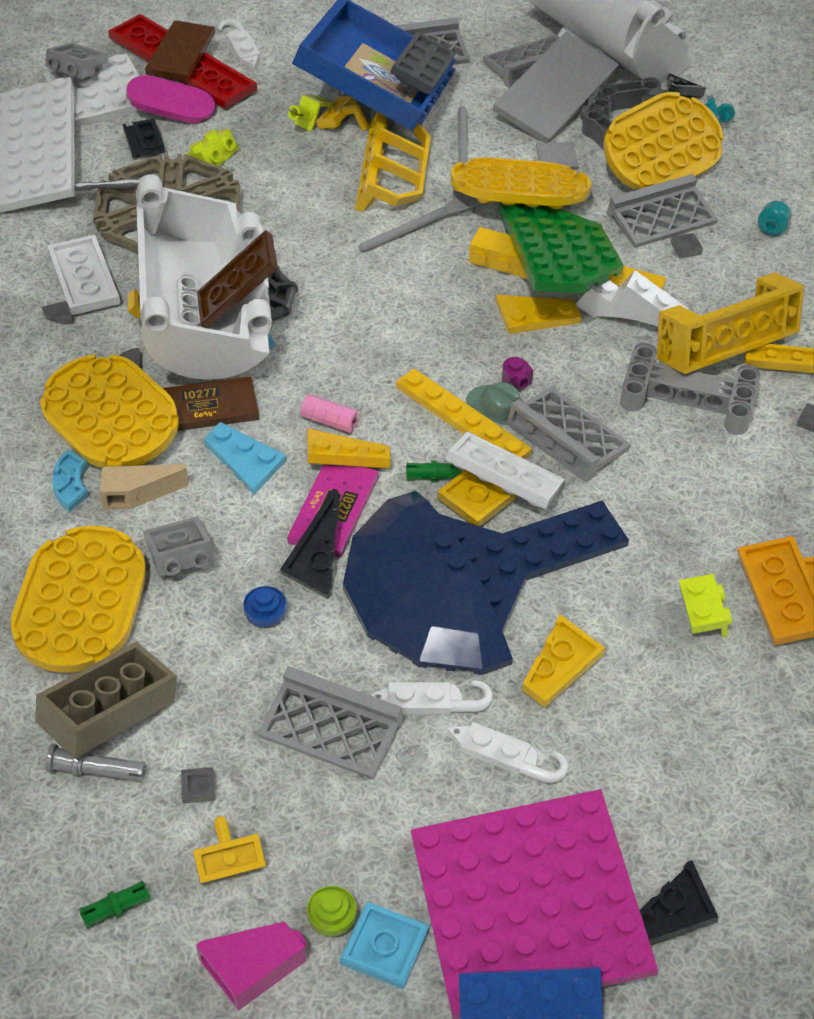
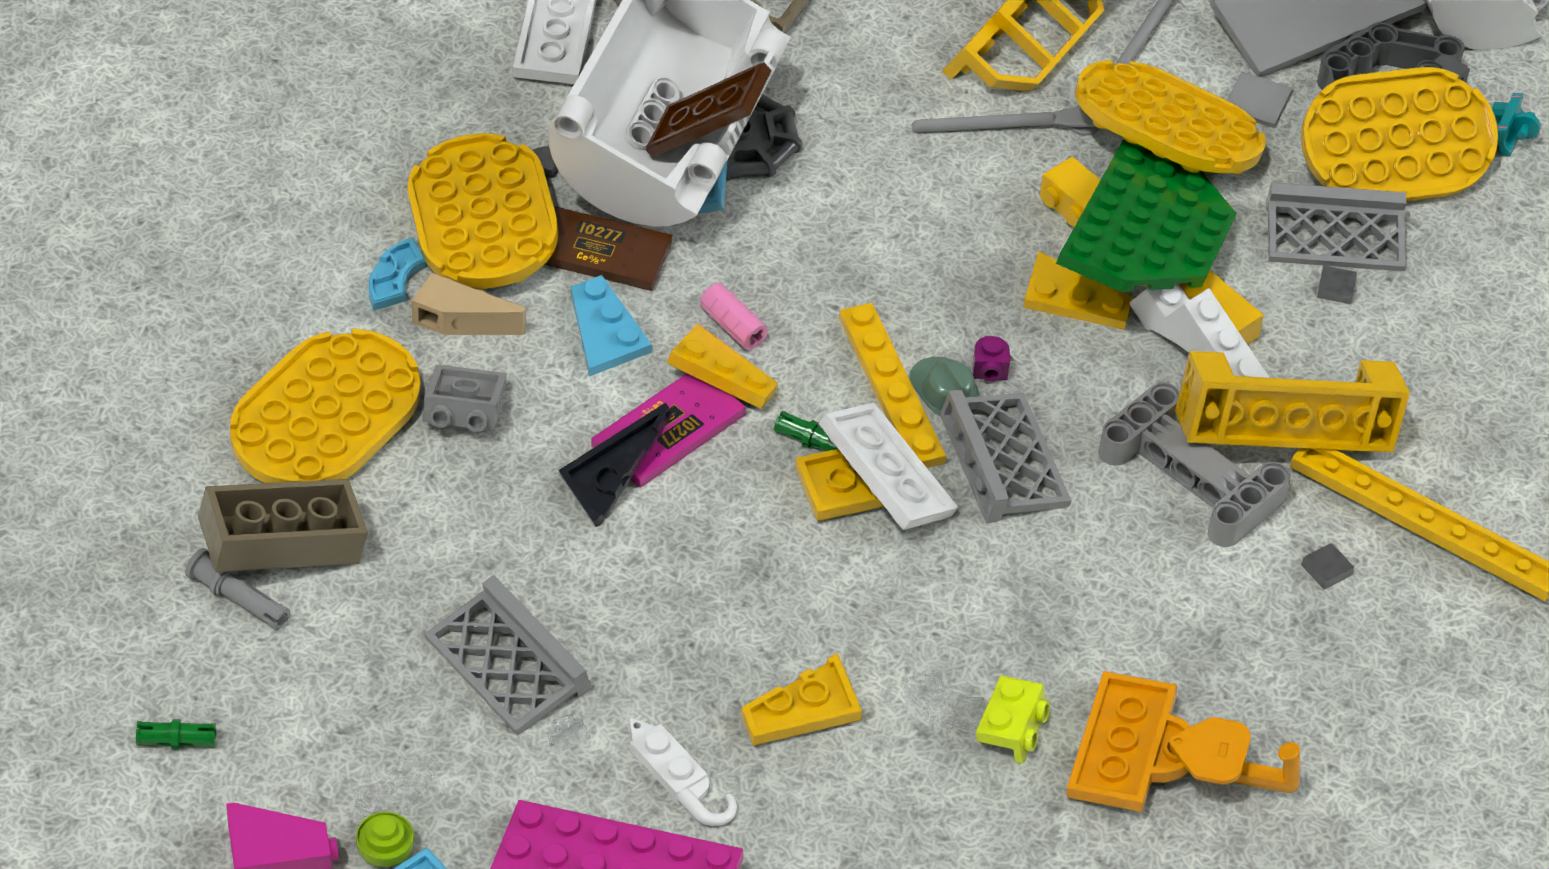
camera: 25 degrees right, 0 degrees up
(58, 312) = (499, 67): flat silver tile -> none
(197, 785) = (330, 657): flat silver tile -> none
(228, 856) = (315, 739): yellow plate -> none
(265, 606) = (517, 503): blue plate -> none
(433, 697) = (635, 680): white plate -> none
(449, 586) = (730, 560): dark blue plate -> none
(684, 87) = (1492, 65): black wing -> none
(774, 218) = (1481, 292): teal head -> none

